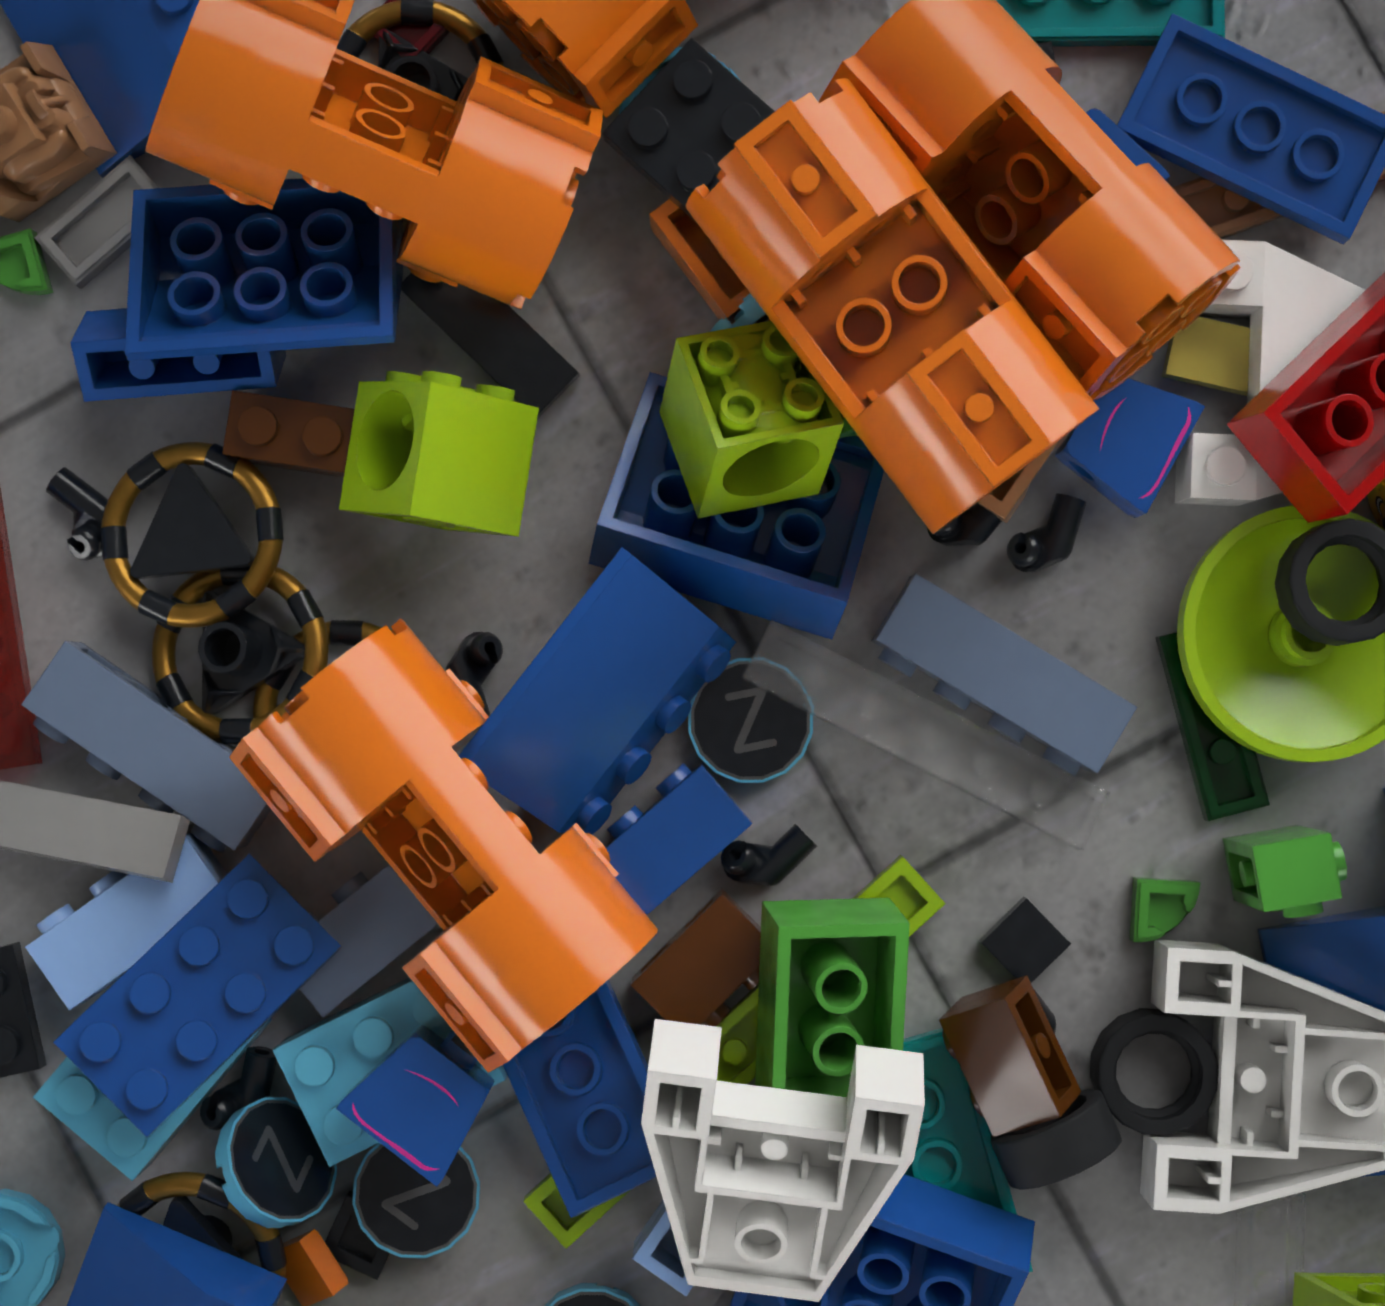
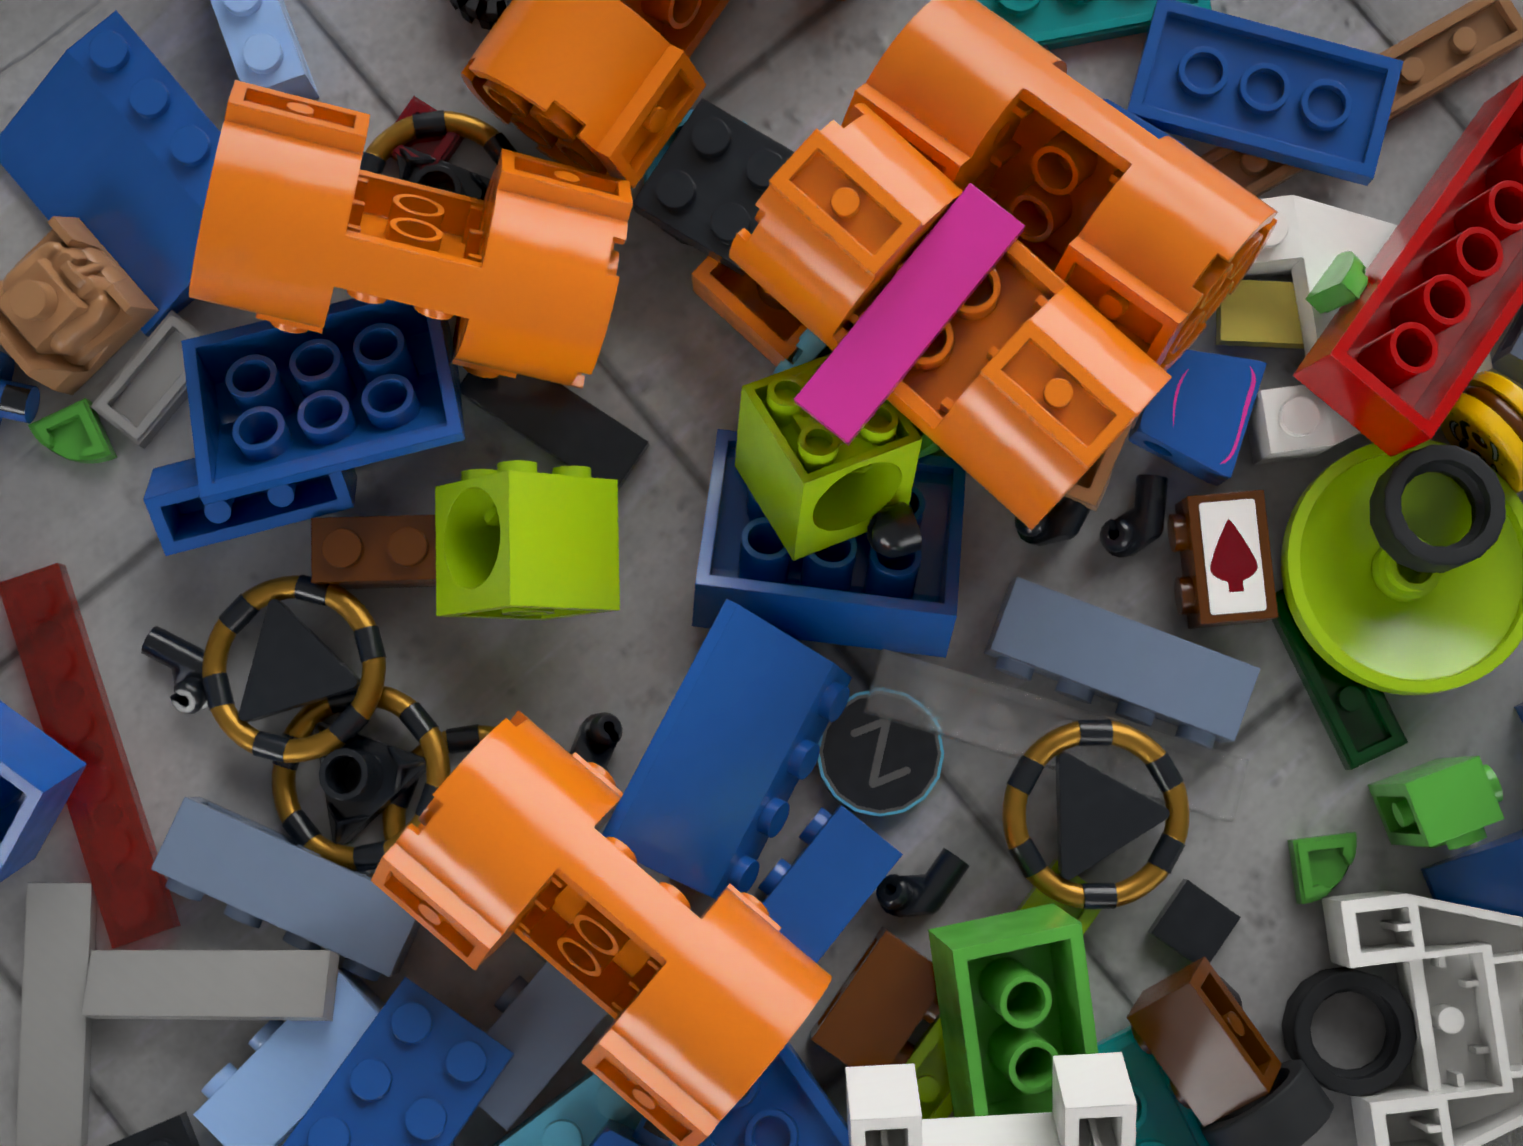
camera: 15 degrees left, 5 degrees down
(802, 508) = (894, 531): none -> black hinge
(851, 299) = (909, 314): none -> dark pink tile
(948, 819) = (1096, 814): none -> piece
(1123, 592) = (1223, 559): none -> brick
(1292, 340) = (1339, 284): none -> bright green tile

